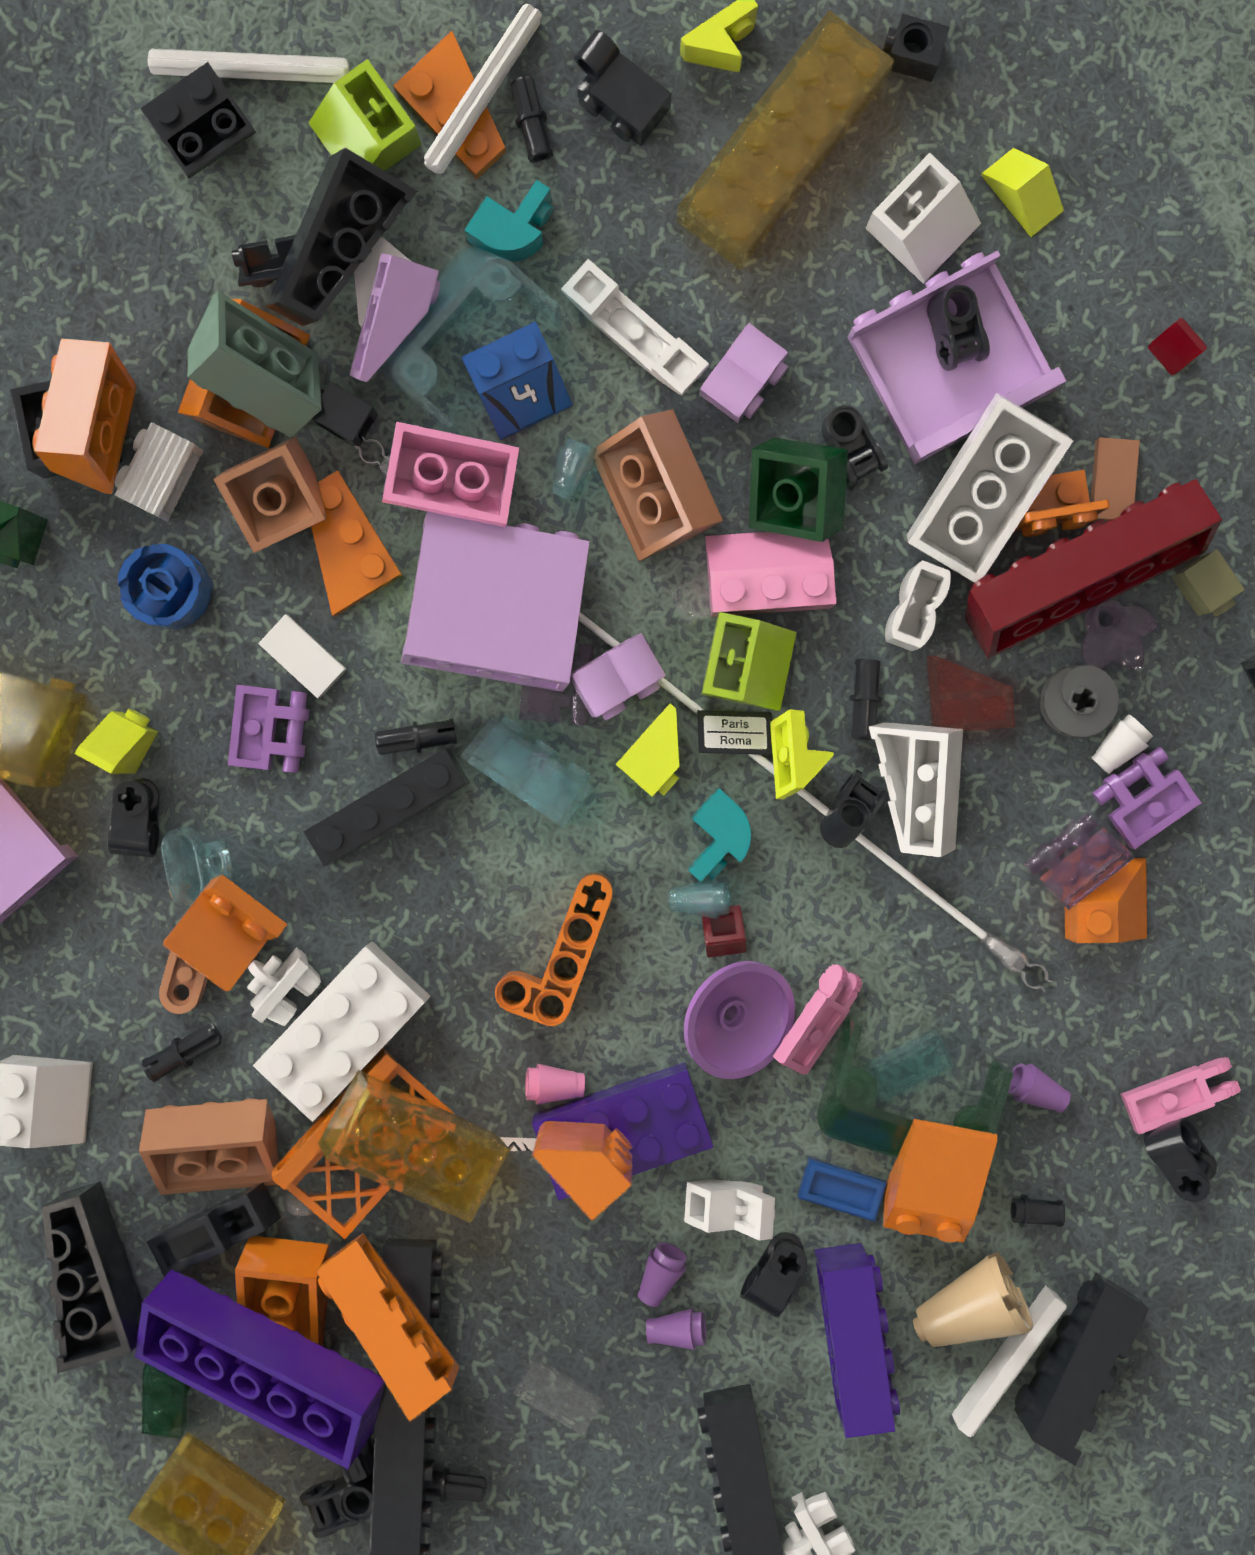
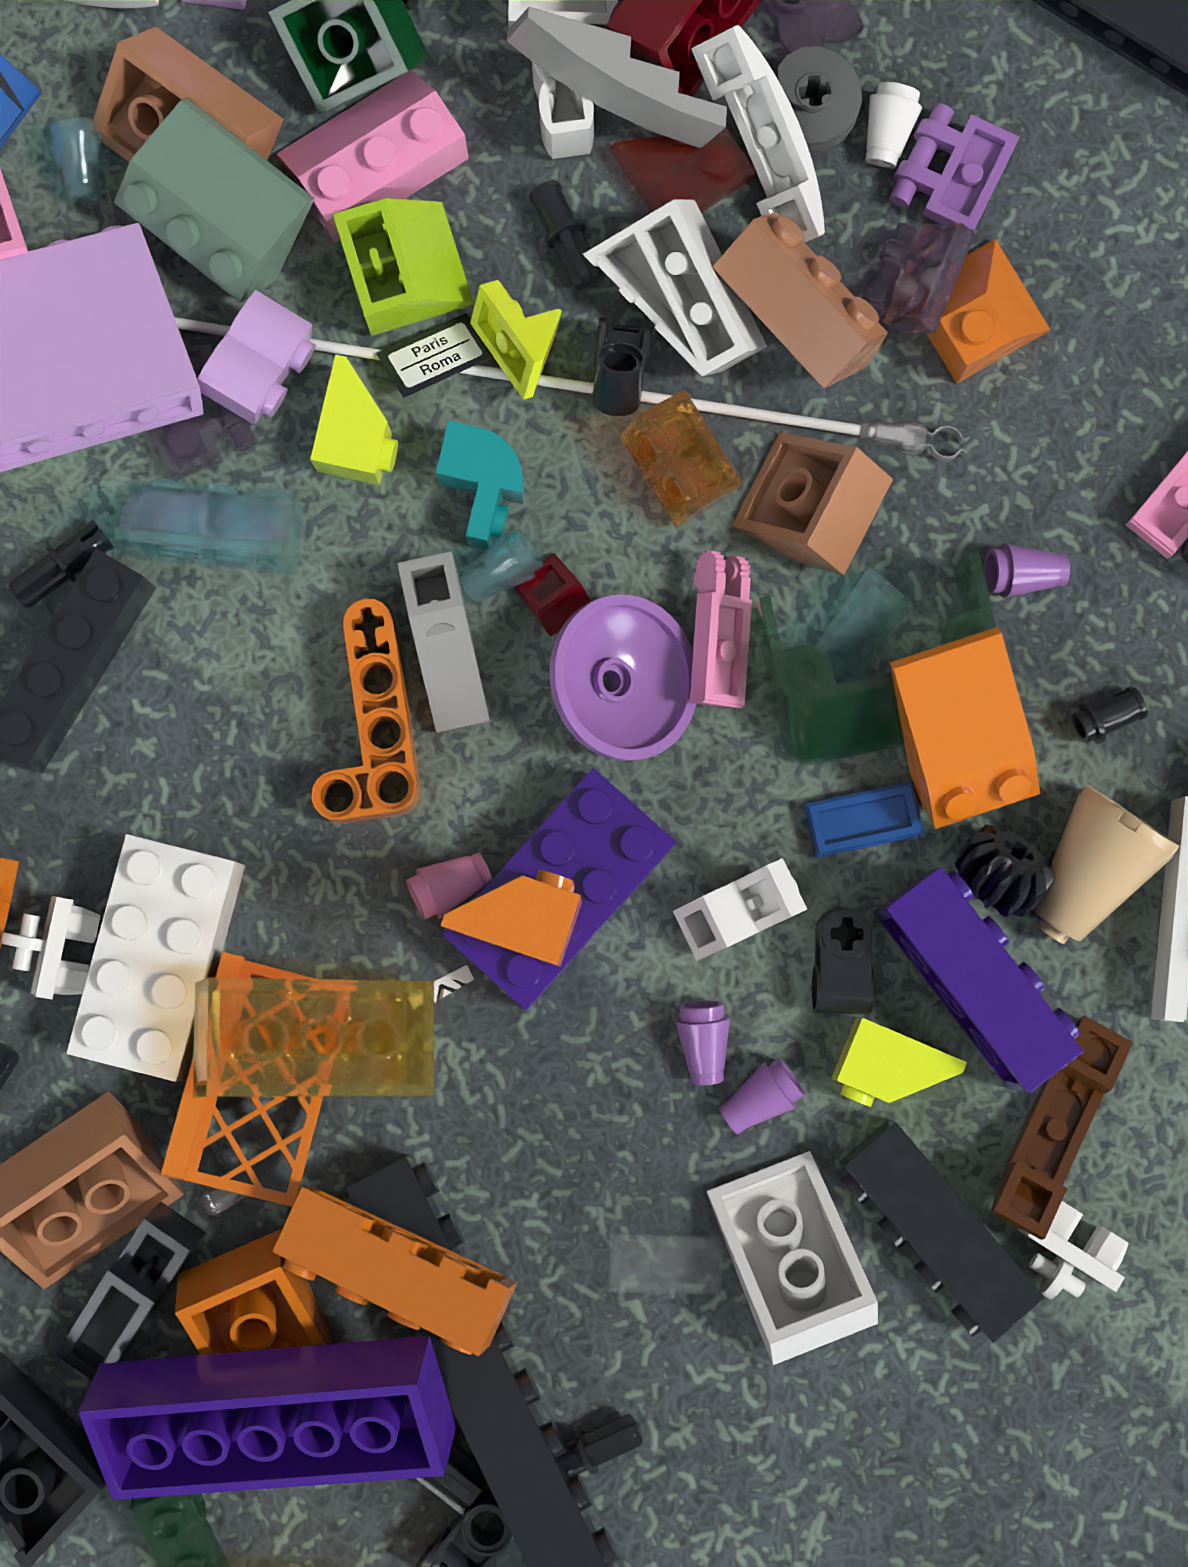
camera: 30 degrees left, 5 degrees down
(636, 929) = (443, 641): none -> light grey slope
(641, 1439) = (793, 1258): none -> white slope
(646, 555) = (214, 201): none -> sand green slope
(769, 1356) = (889, 1064): none -> neon yellow slope
(842, 1459) = (1056, 1128): none -> reddish brown slope
(856, 896) = (680, 458): none -> clear orange brick
(912, 1278) = (1004, 870): none -> black gear
(926, 968) = (813, 501): none -> nougat slope
(952, 621) = (600, 69): none -> light grey slope
(994, 842) = (801, 299): none -> nougat slope
(1037, 715) = (767, 126): none -> white slope

